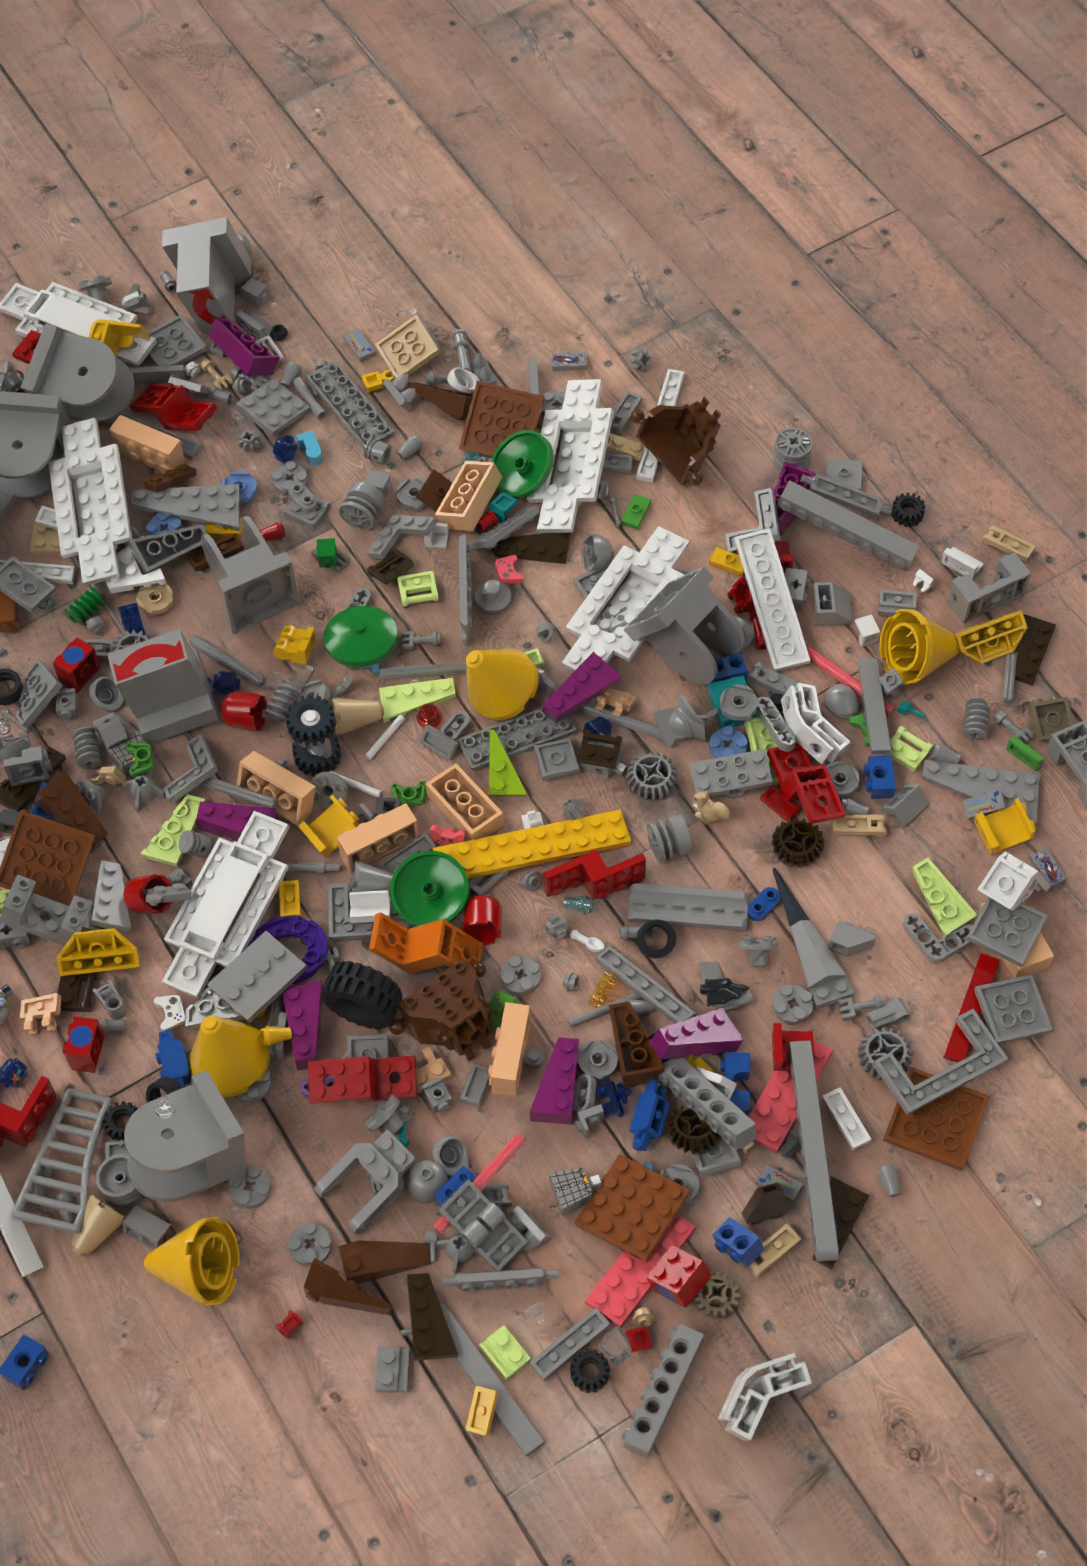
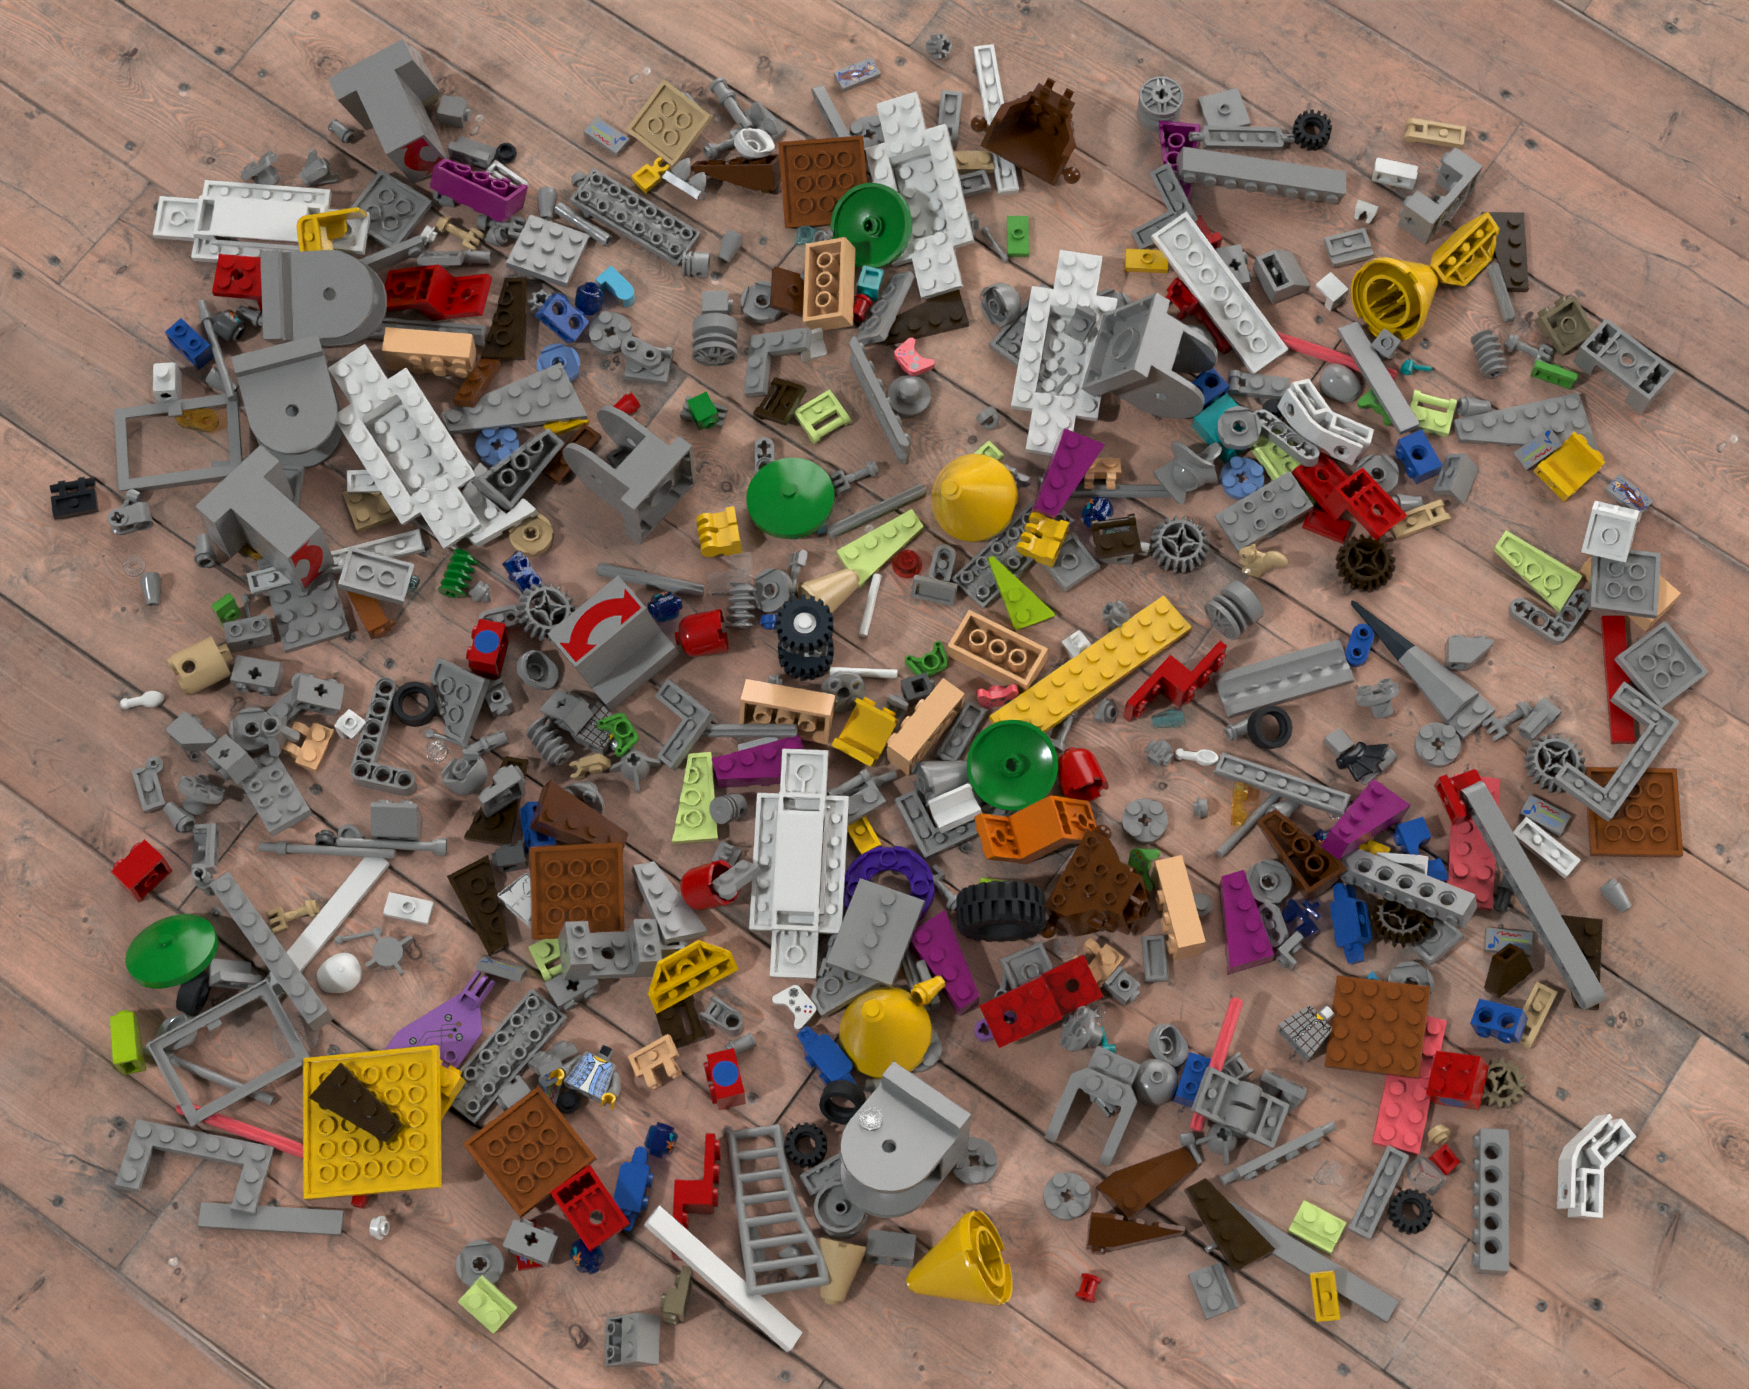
camera: 25 degrees left, 10 degrees up
(42, 733) = (488, 743): none -> light grey pin
(218, 447) = (508, 326): none -> dark brown wing
(251, 456) = (559, 322): none -> blue brick
(300, 877) = (862, 802): none -> light grey plate
(542, 732) = (1052, 538): none -> yellow legs
(647, 582) = (1081, 323): none -> light grey bracket
(858, 1093) = (1545, 815): none -> light grey tile

